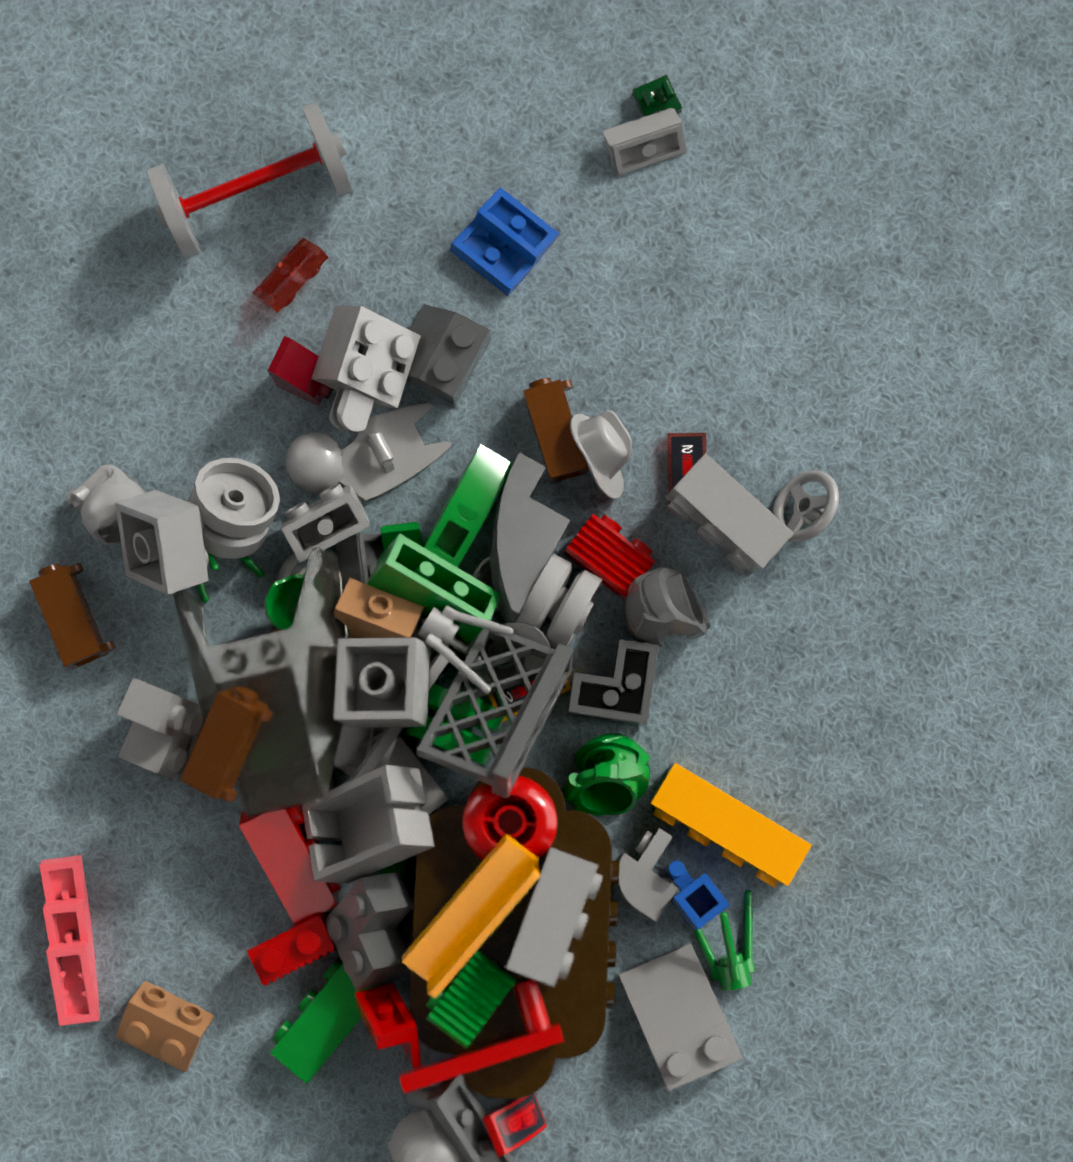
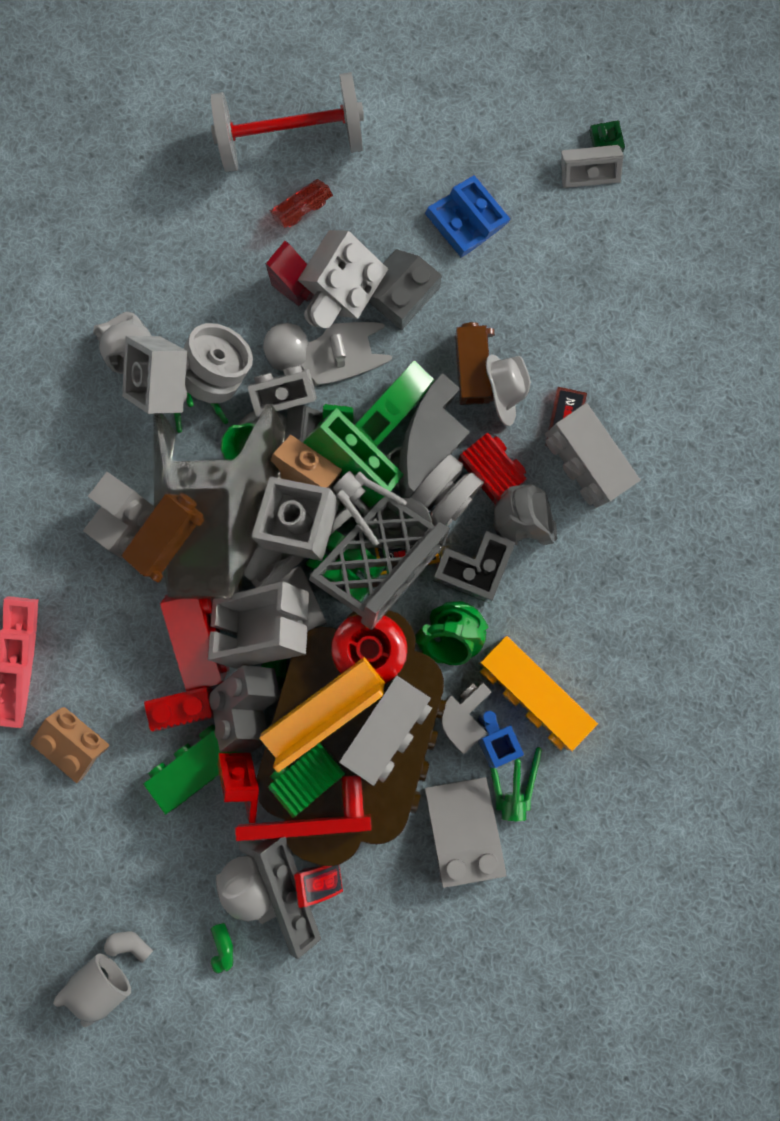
camera: 10 degrees right, 0 degrees up
(69, 615) = (73, 417): reddish brown brick -> none
(809, 510) = (655, 470): light grey piece -> none

